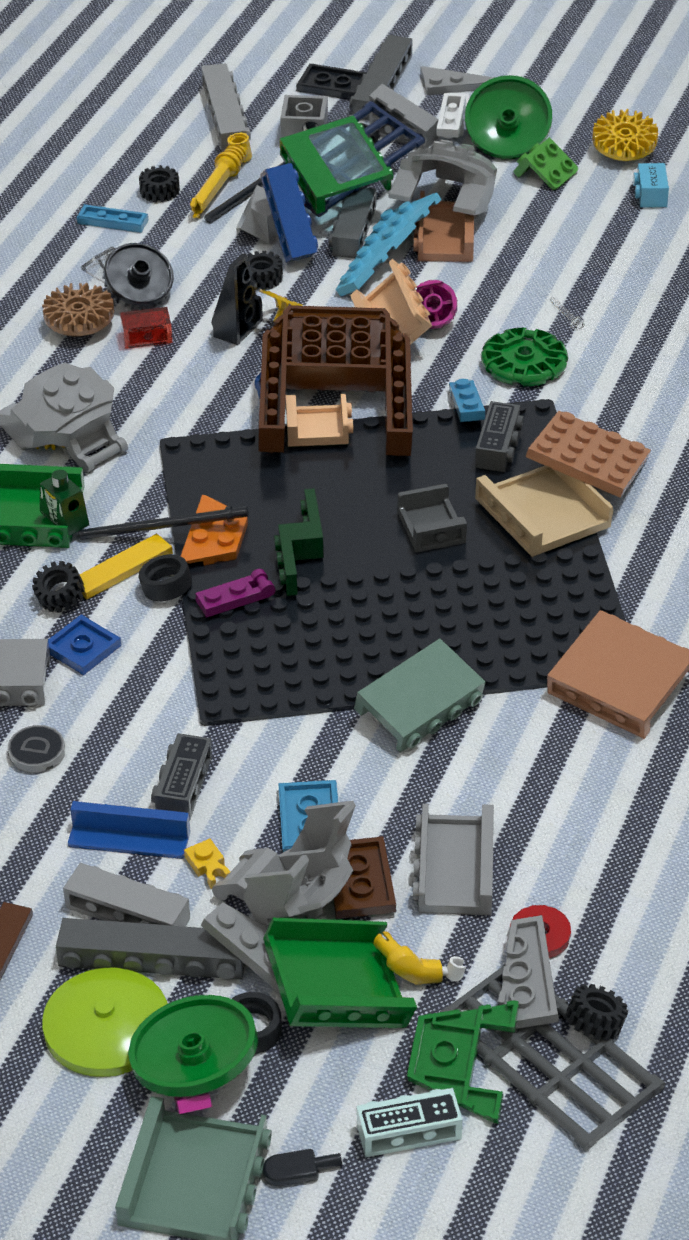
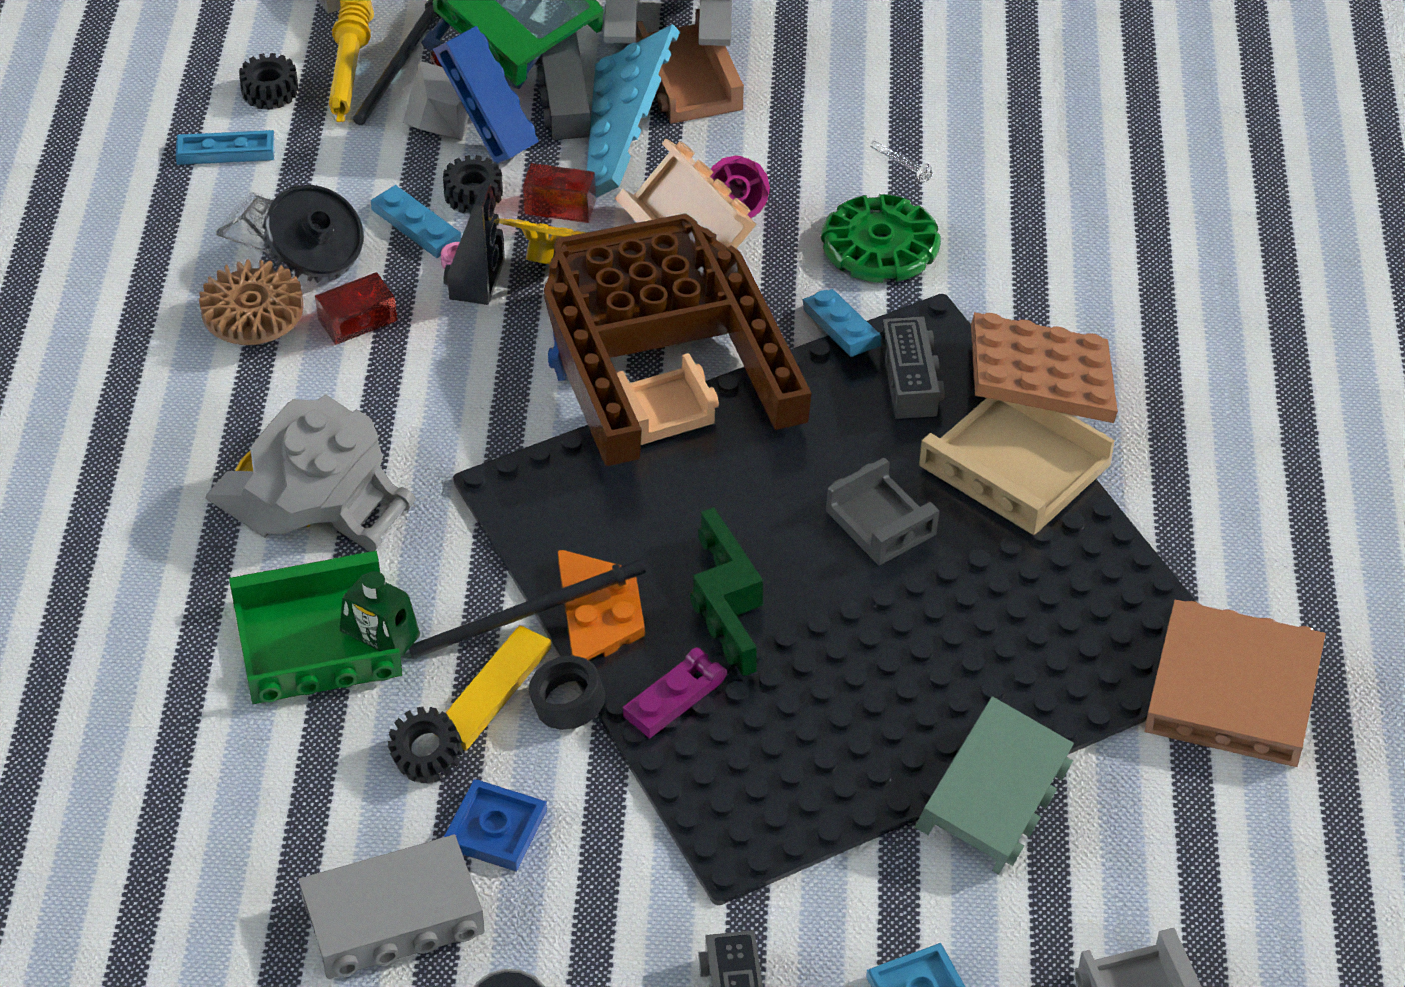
camera: 20 degrees left, 5 degrees up
(208, 279) = (414, 220): none -> dark azure plate
(315, 285) = (559, 192): none -> clear red brick

